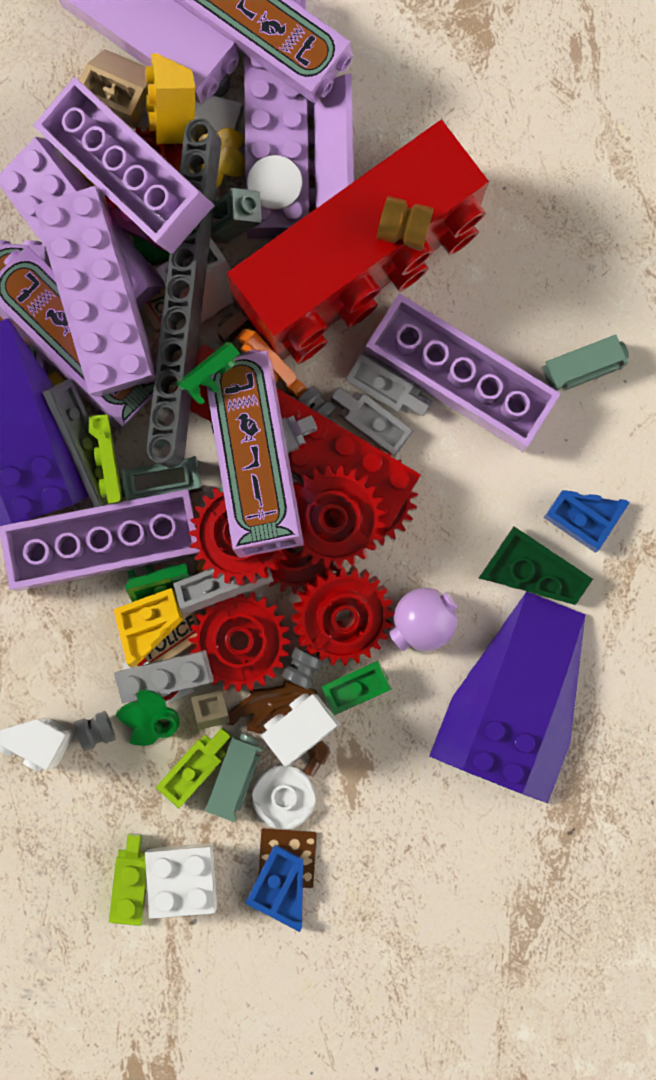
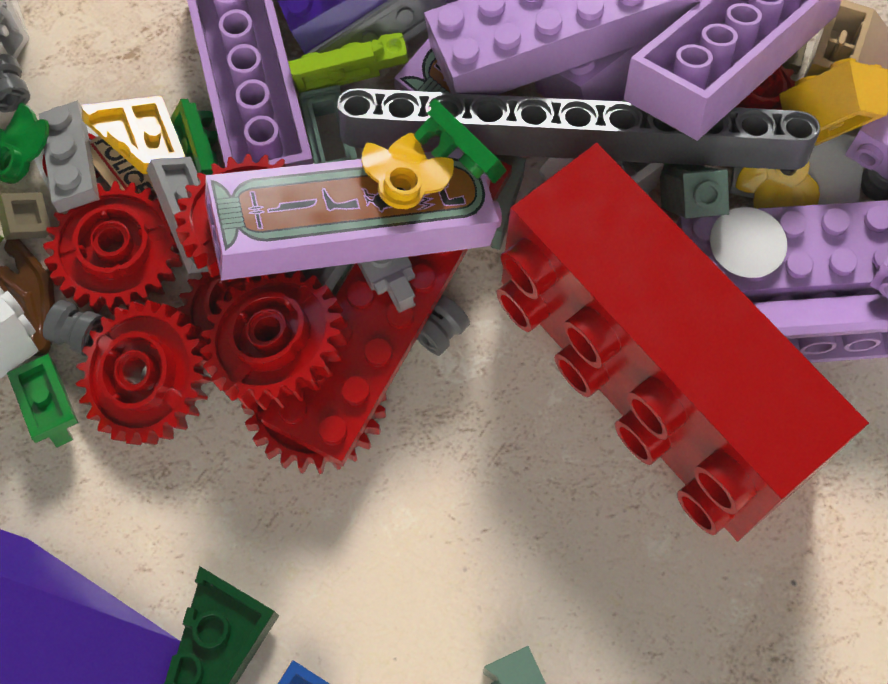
camera: 90 degrees right, 15 degrees down
(225, 411) = (408, 168): none -> yellow plate
(282, 373) = (485, 268): orange plate -> none
(372, 421) = (424, 405): light grey hinge -> none
(387, 385) = (477, 424): light grey hinge -> none
(404, 223) = (695, 363): pearl gold wheel -> none
(424, 620) = (135, 487): lavender brick -> none
(462, 373) = (498, 523): lavender brick -> none

